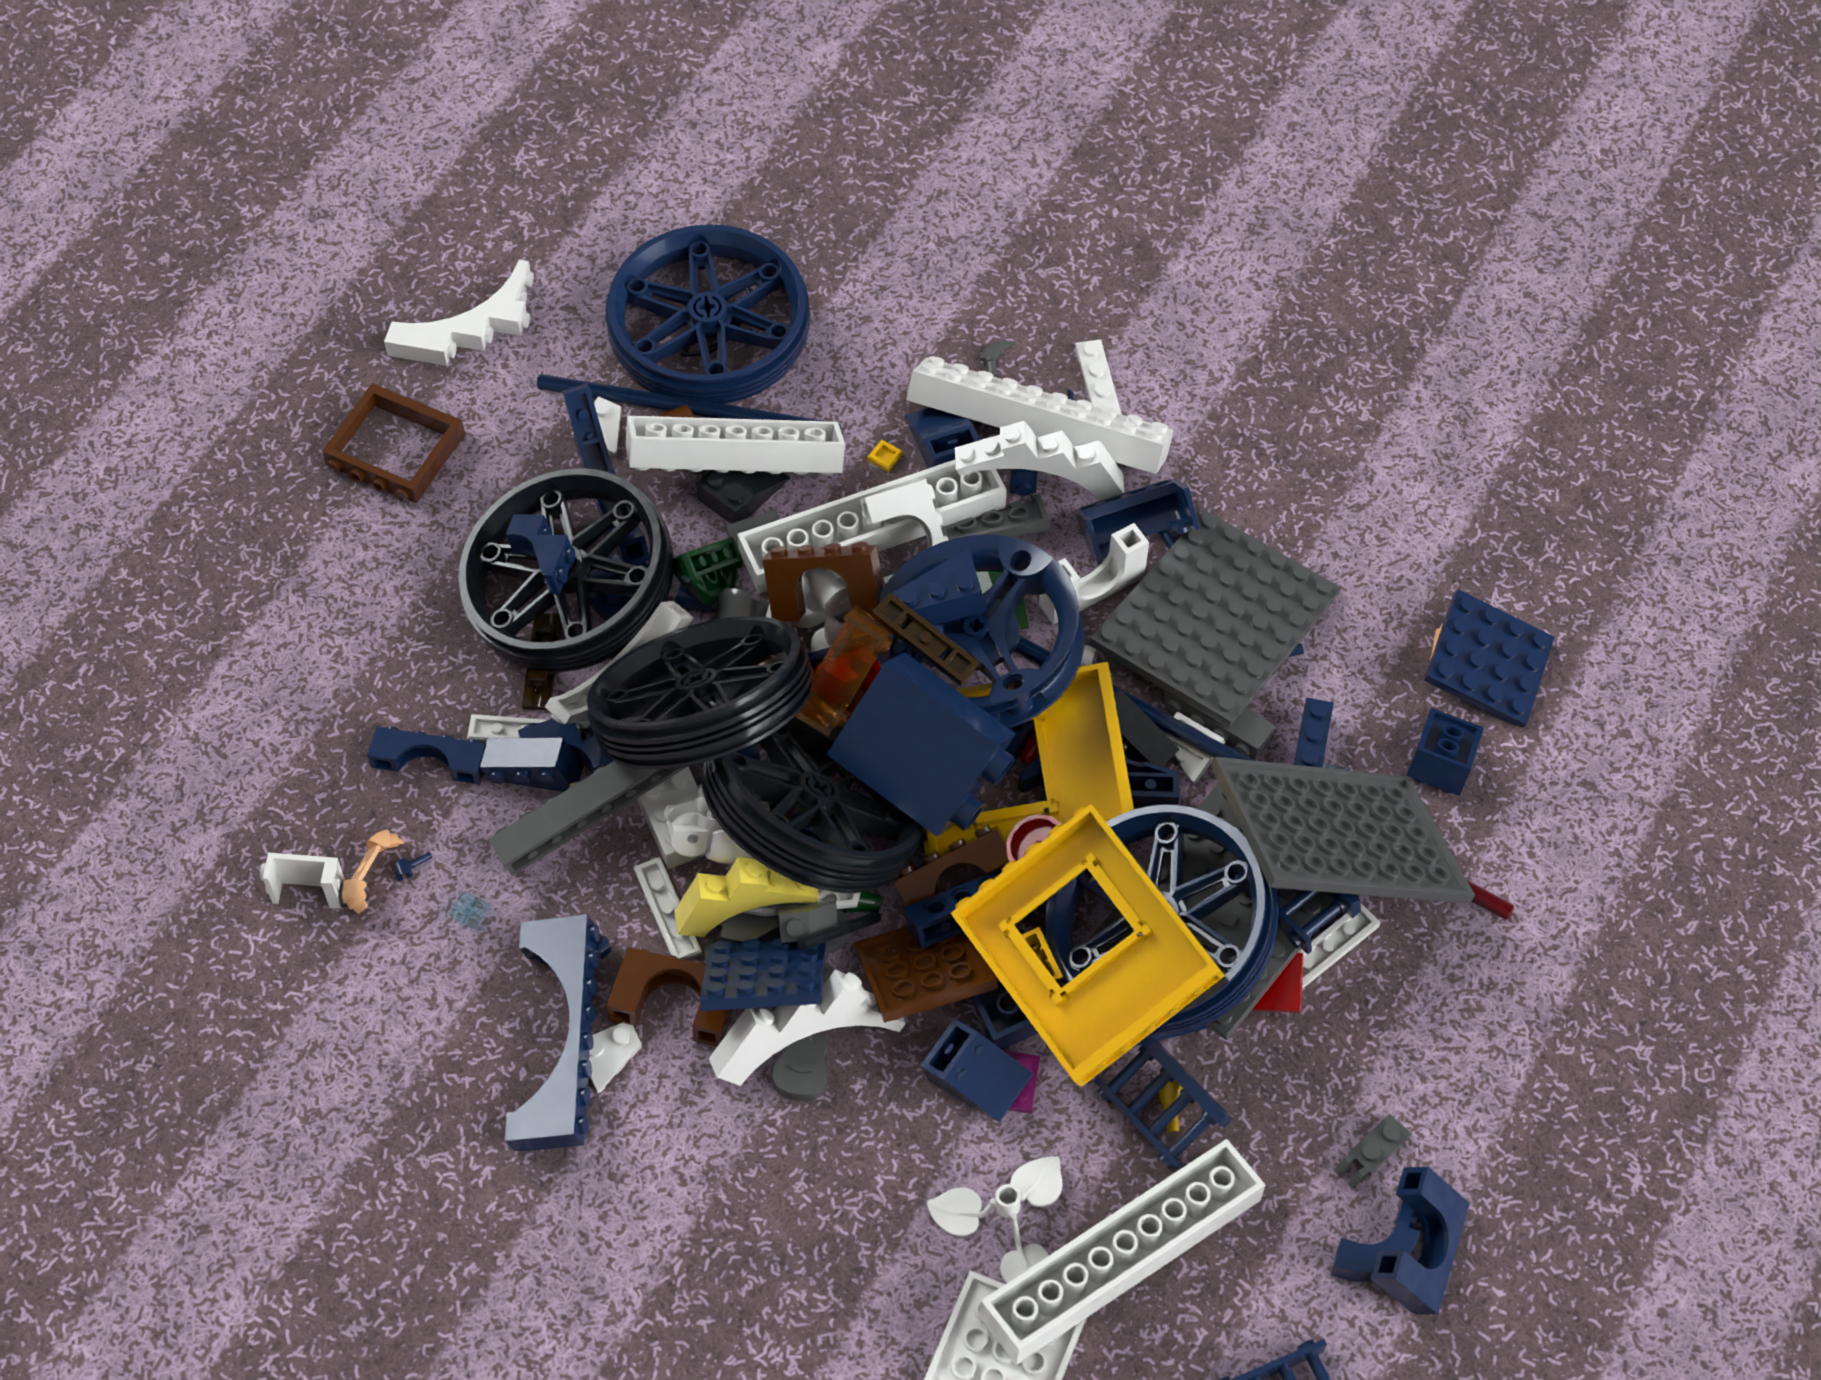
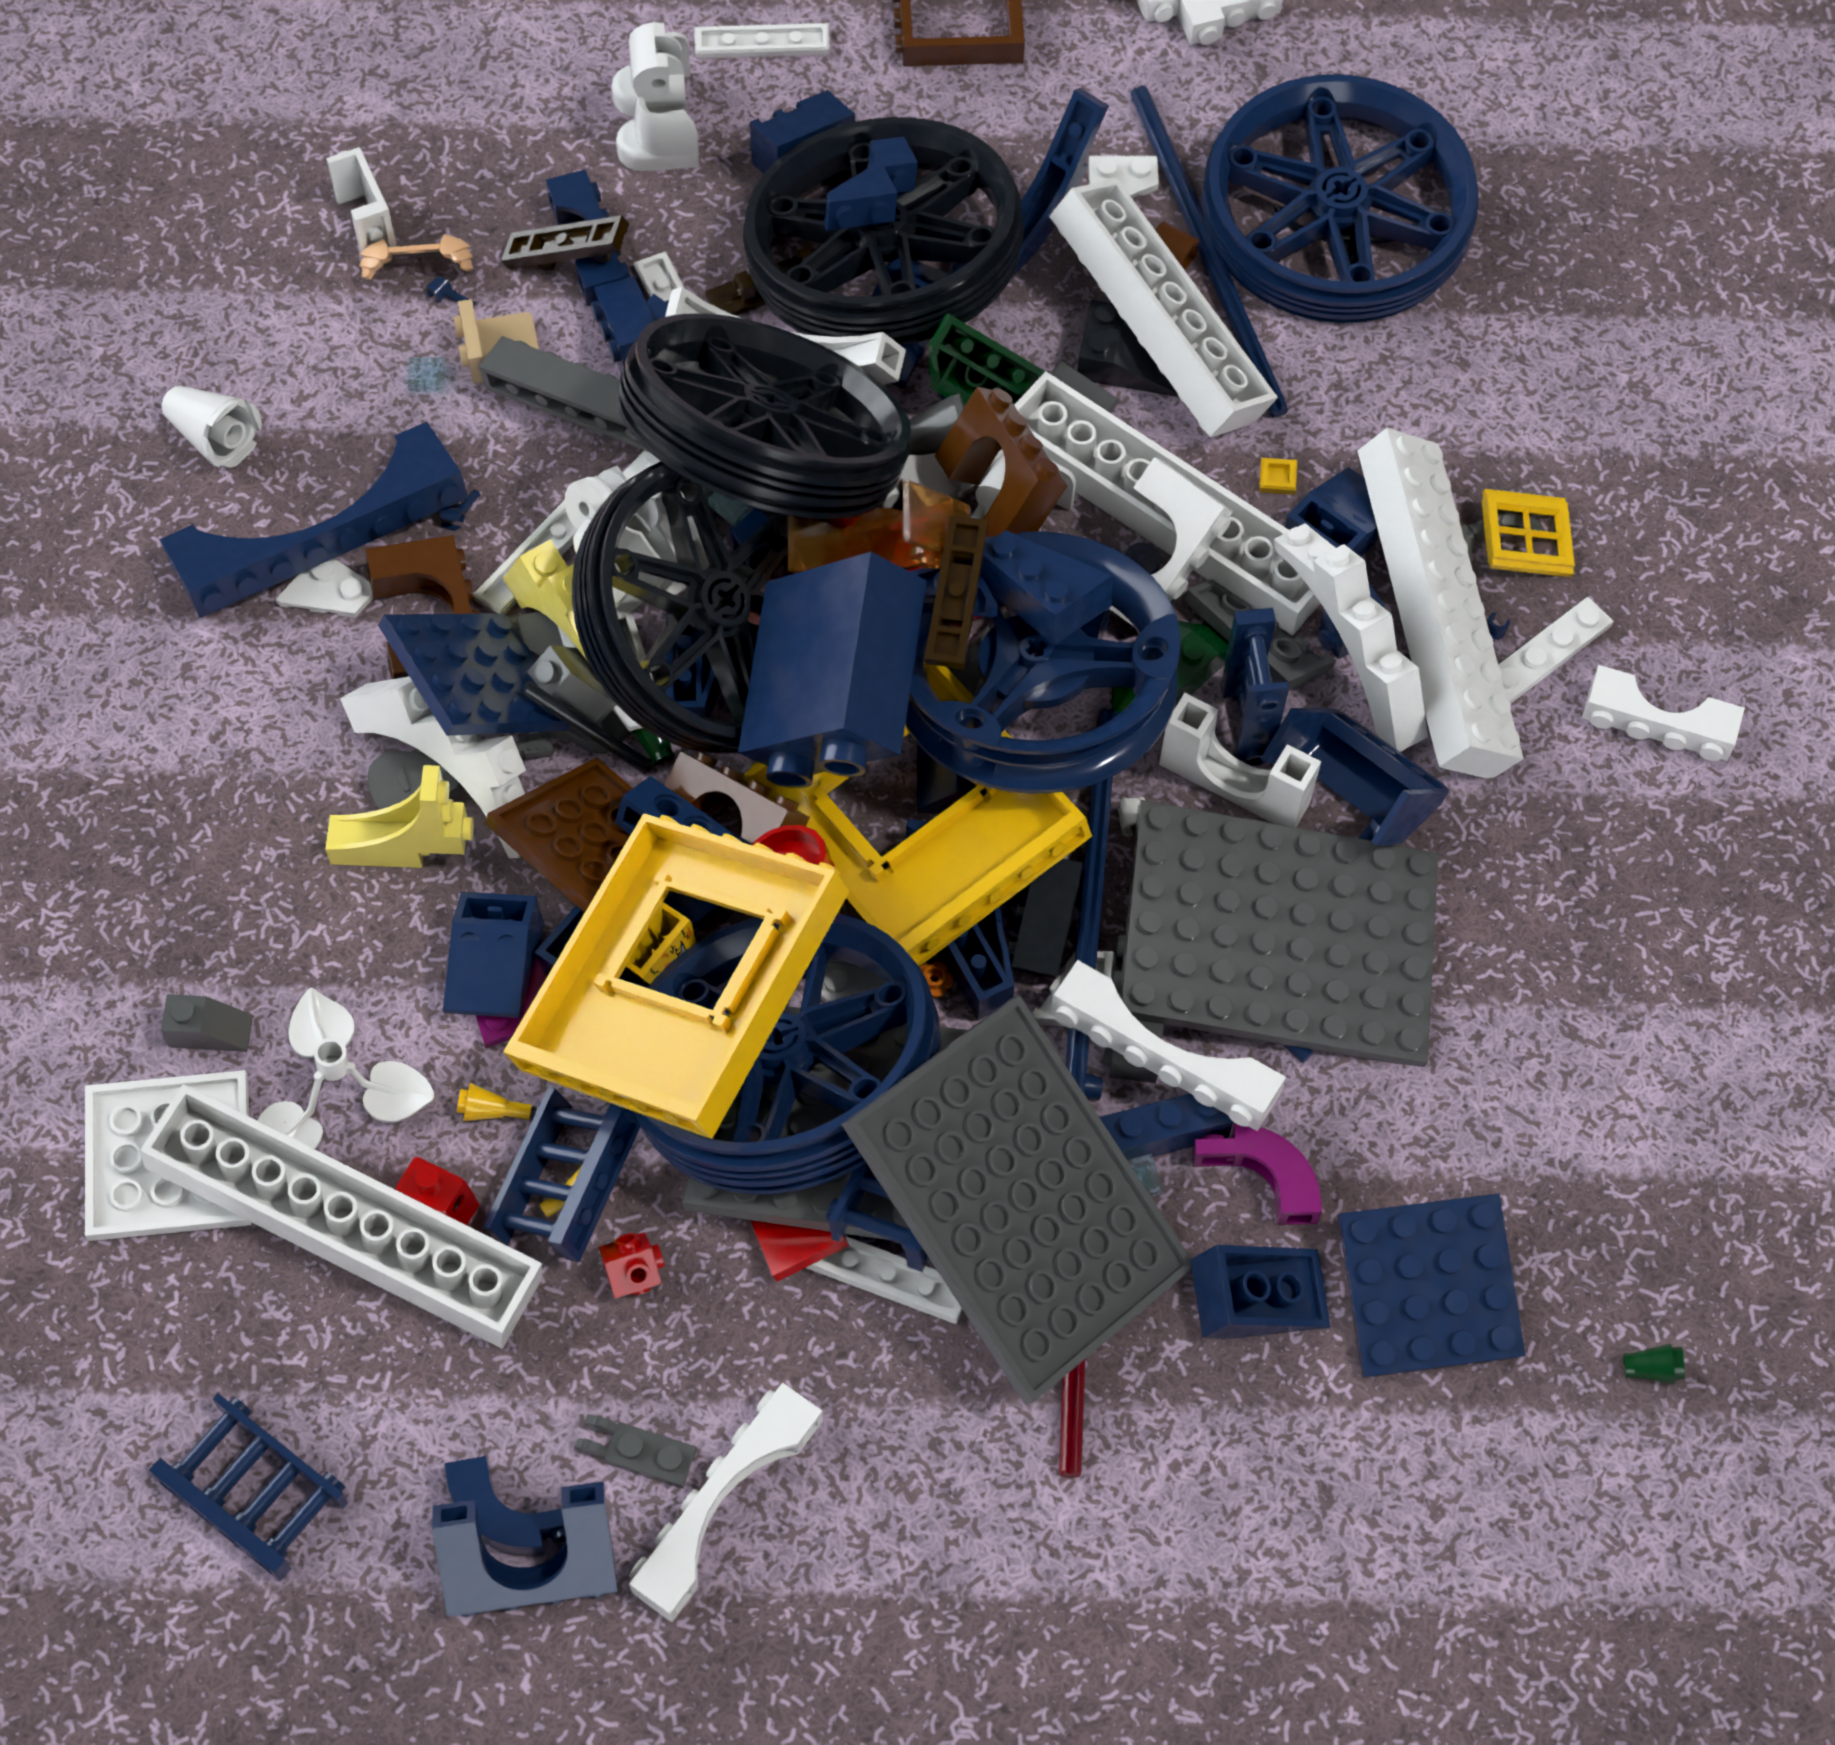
camera: 60 degrees right, 5 degrees up
(333, 574) = (762, 40): none -> white tile
(336, 642) = (655, 94): none -> white piece
(420, 1066) = (213, 423): none -> white cone
(433, 765) = (565, 242): none -> dark brown hinge
(440, 586) = (789, 129): none -> dark blue wedge
(473, 853) = (484, 334): none -> tan bracket
(850, 1084) = (403, 832): none -> light yellow arch
(898, 557) = (1145, 556): none -> black tile
(917, 1284) = (205, 1024): none -> dark grey slope
(994, 338) = (1527, 504): none -> yellow piece
(1030, 520) = (1250, 683): none -> dark blue fence
(1076, 1133) = (483, 1104): none -> yellow cone
(1129, 1185) = (438, 1190): none -> red torso
(1158, 366) = (1619, 704): none -> white arch
(1225, 732) = (1234, 1086): none -> white arch
(1246, 1091) = (631, 1264): none -> red brick
(1369, 696) = (1275, 1160): none -> magenta arch
(1469, 1165) = (777, 1432): none -> white arch
(1593, 573) = (1656, 1364): none -> dark green cone

